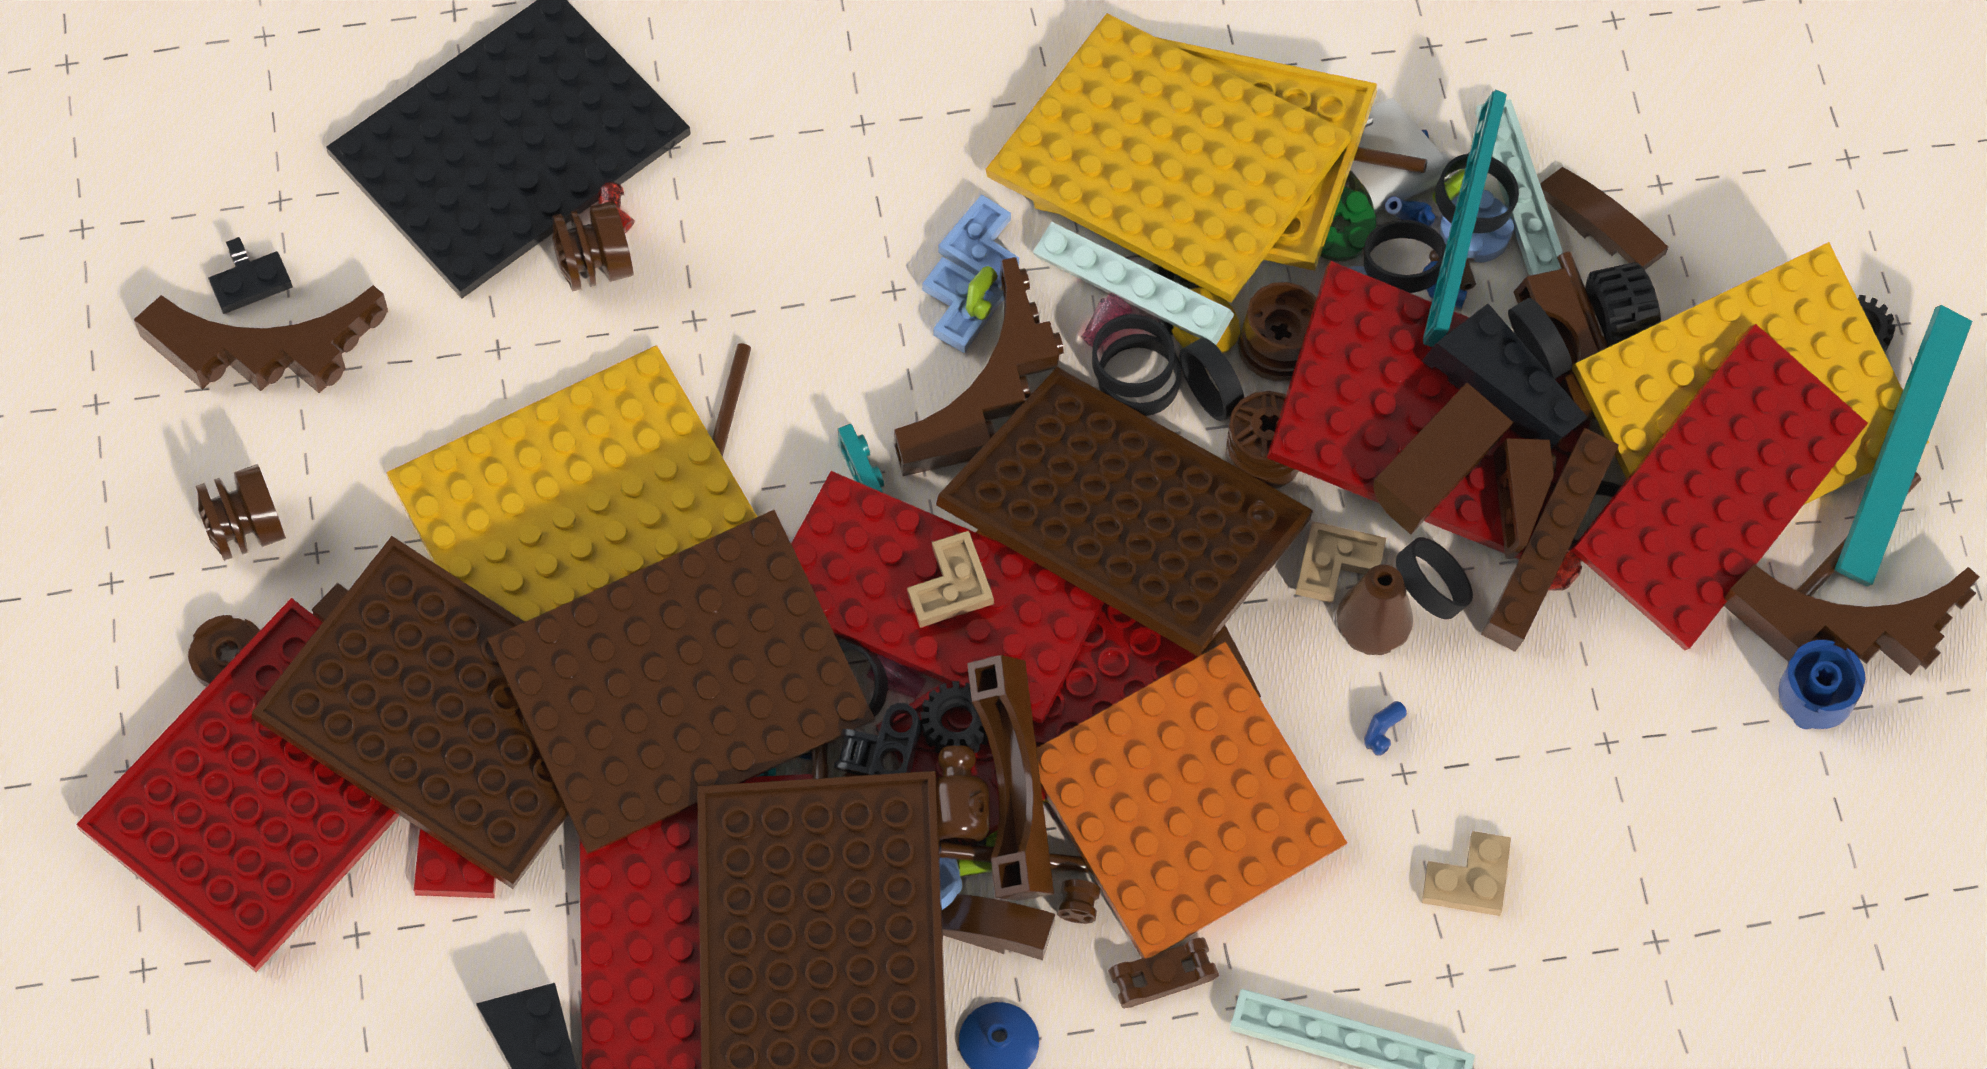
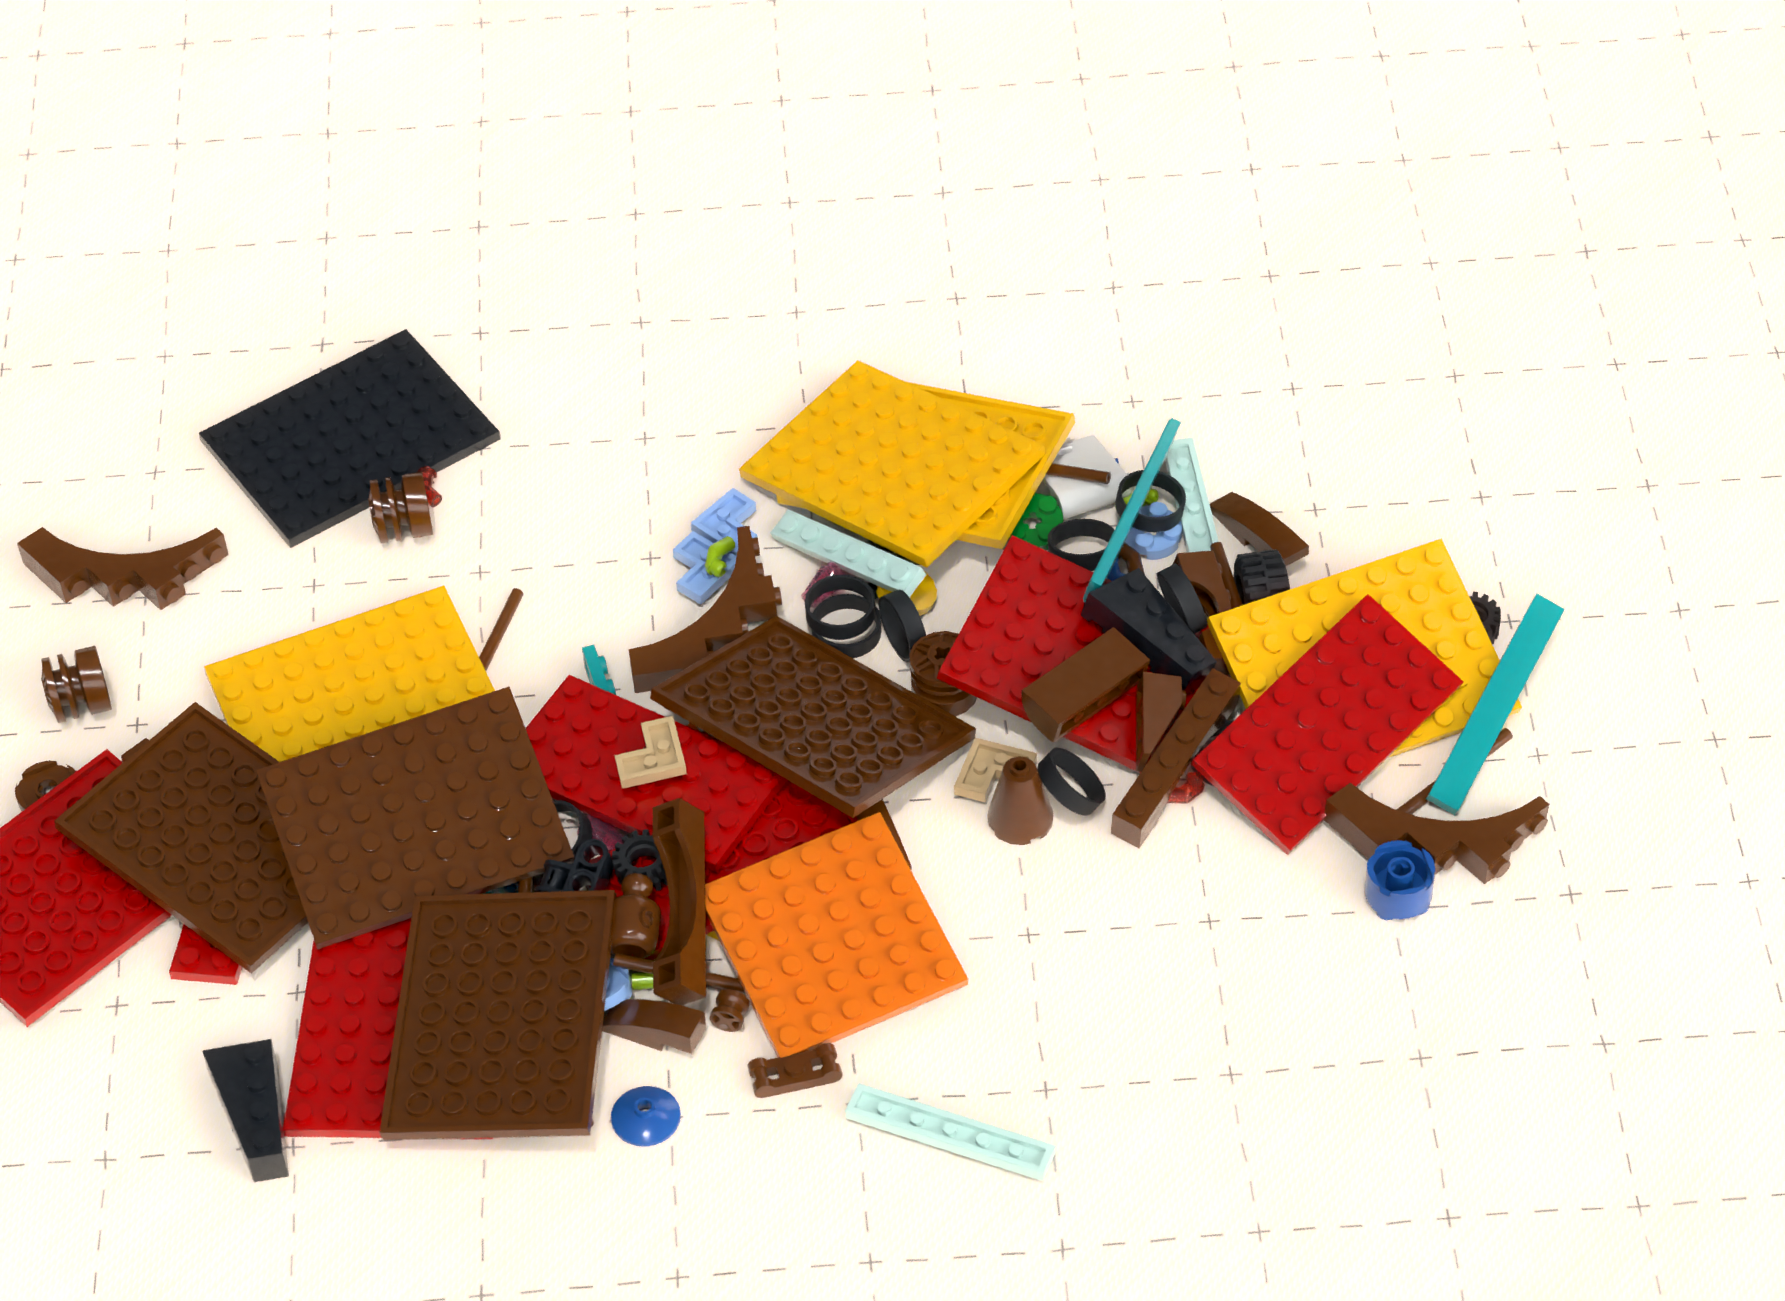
camera: 10 degrees right, 15 degrees down
(248, 279) = (118, 524): black plate -> none
(1275, 329) = (958, 588): reddish brown wheel -> none
(1380, 723) = (1012, 891): blue arm -> none
(1410, 210) = (1083, 511): blue arm -> none
(1474, 887) = (1075, 1022): tan plate -> none

